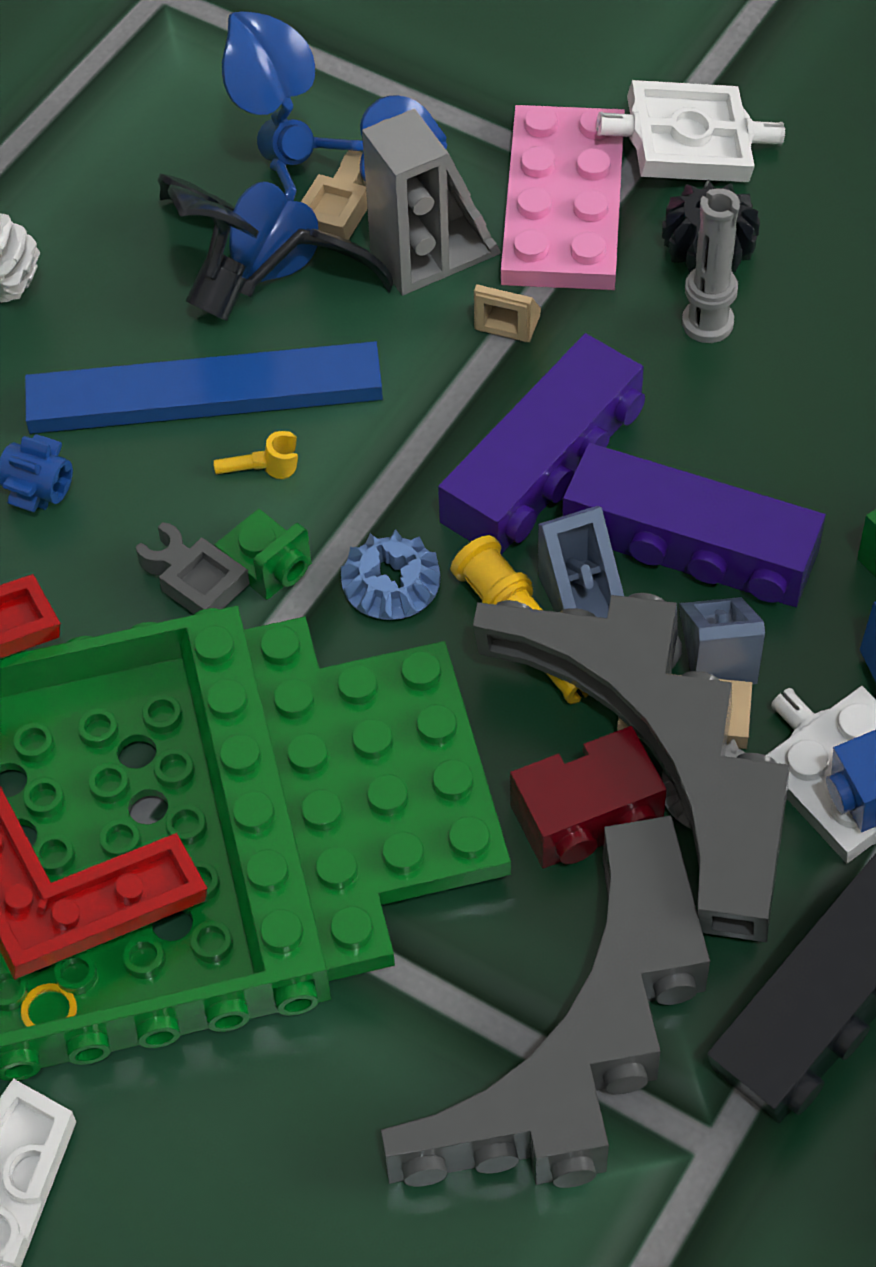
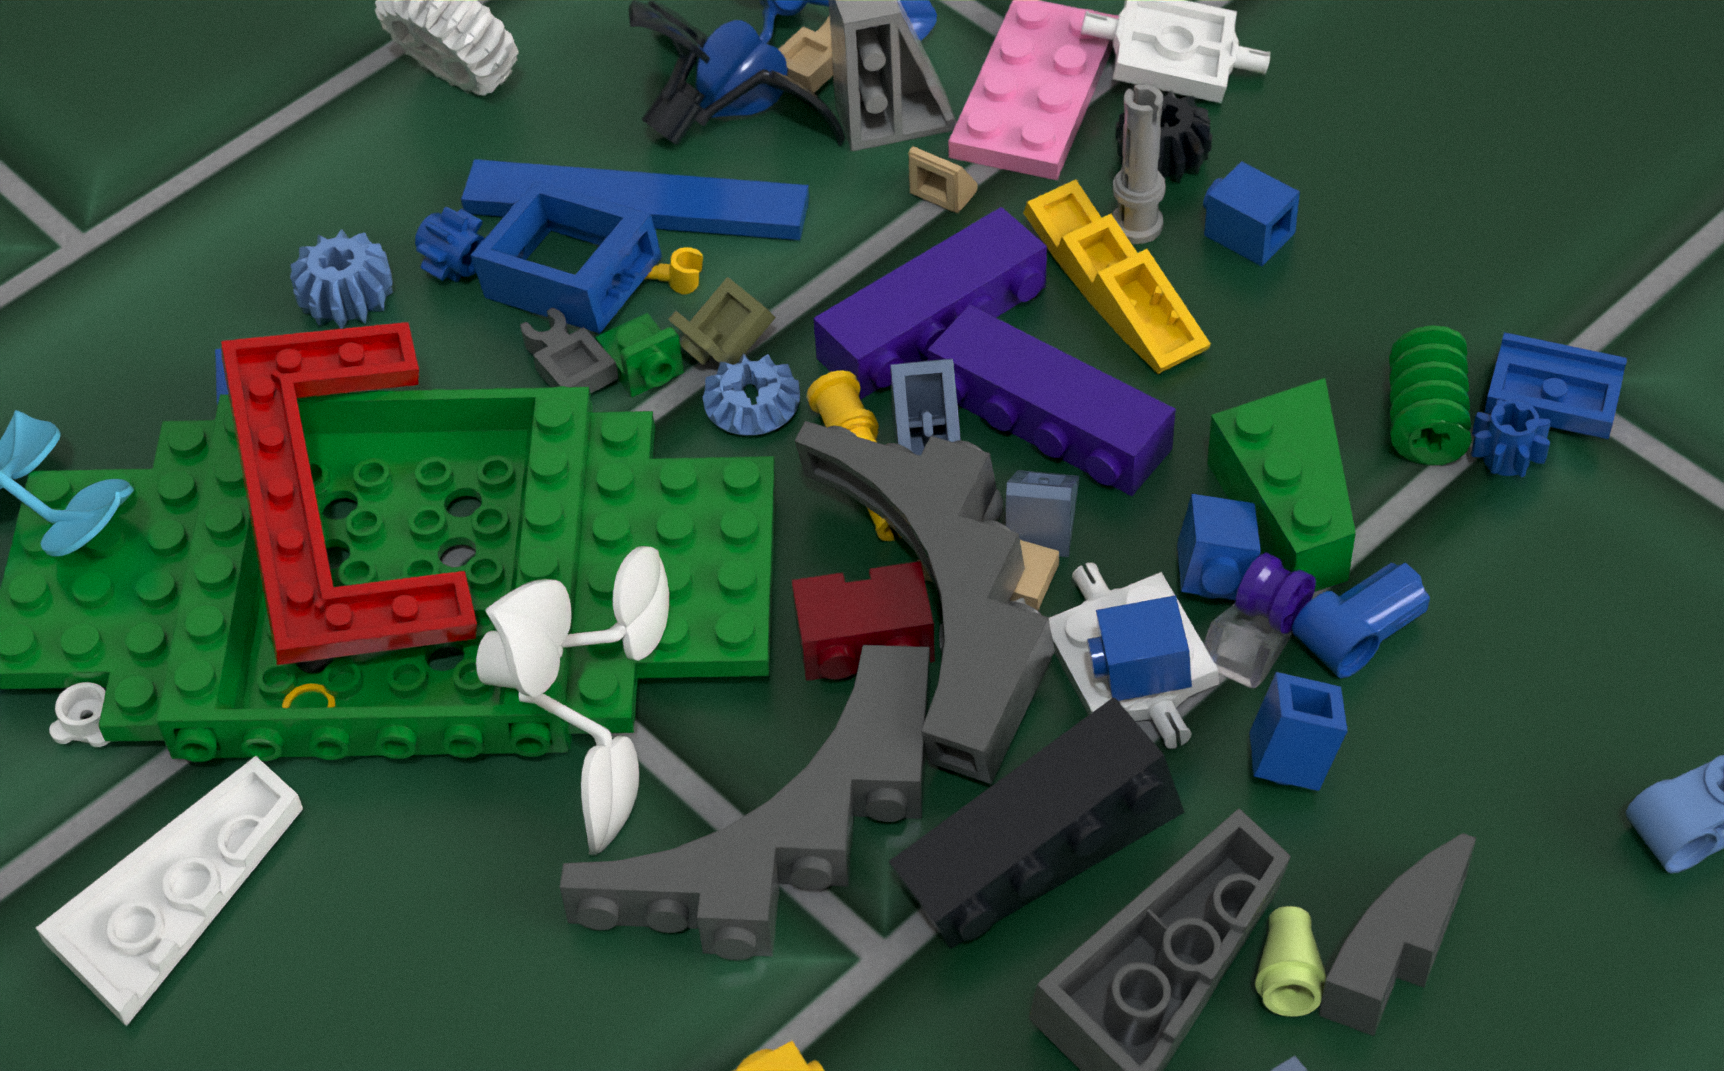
camera: 15 degrees right, 5 degrees down
(193, 508) = (602, 284): none -> blue window
(305, 928) = (527, 654): none -> white plant
(342, 507) = (723, 325): none -> olive bracket
(716, 389) = (1116, 279): none -> yellow slope
(820, 292) = (1250, 213): none -> blue brick

